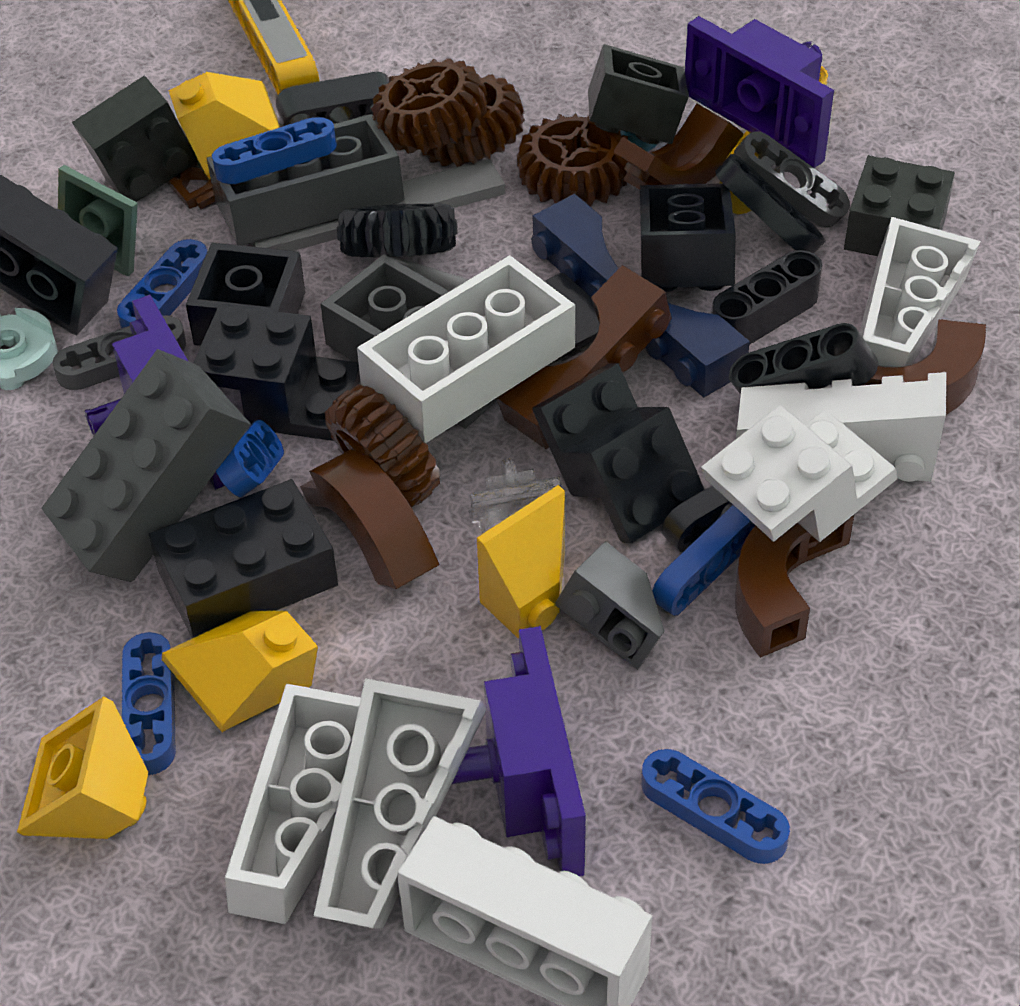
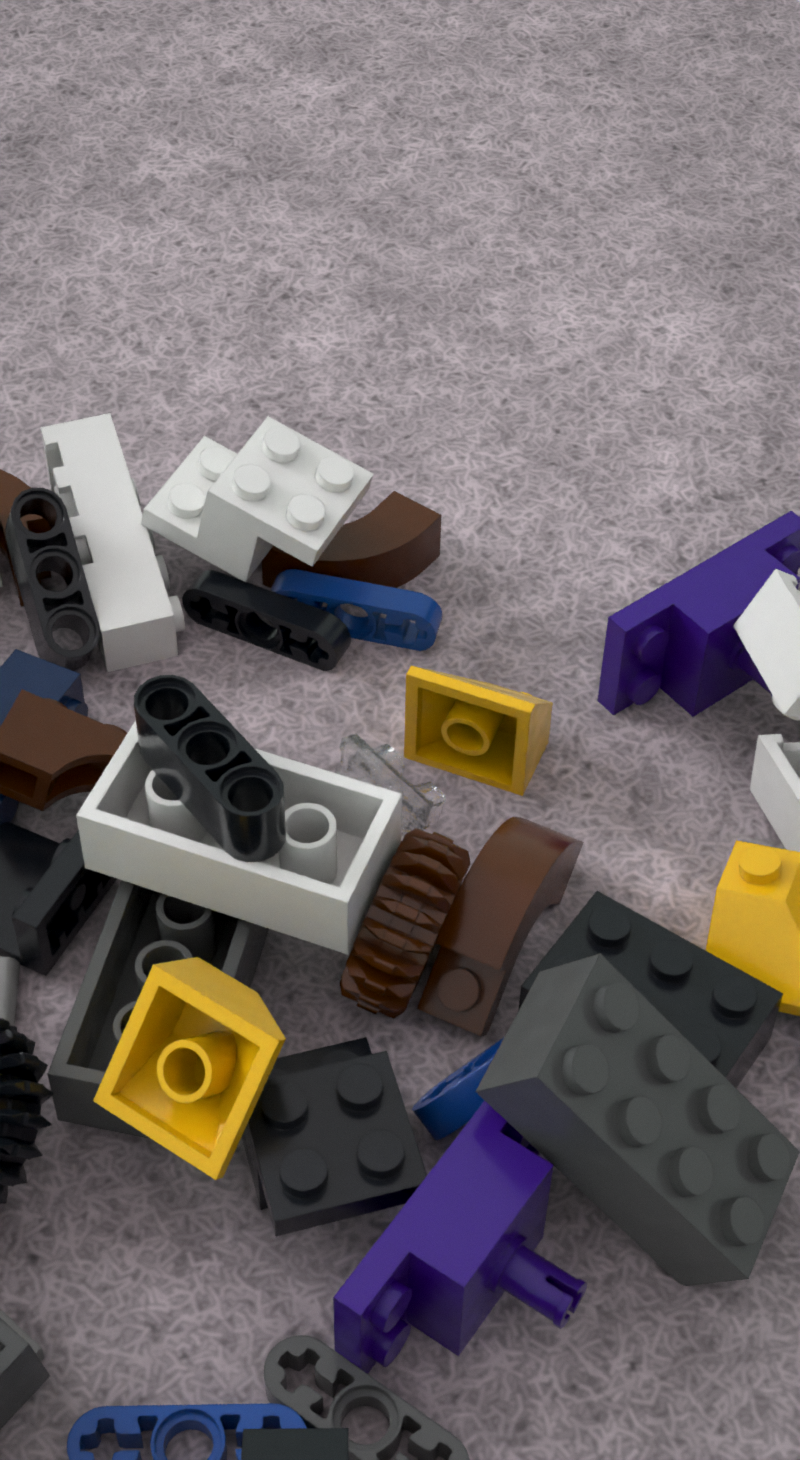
camera: 120 degrees left, 0 degrees up
(245, 279) = (192, 1262): black brick -> none
(336, 292) = (192, 1062): none -> yellow slope
(486, 298) = (210, 768): none -> black beam
(614, 604) = (478, 639): dark grey slope -> none
(618, 451) = (274, 701): black bracket -> none
(708, 783) = (650, 541): blue beam -> none

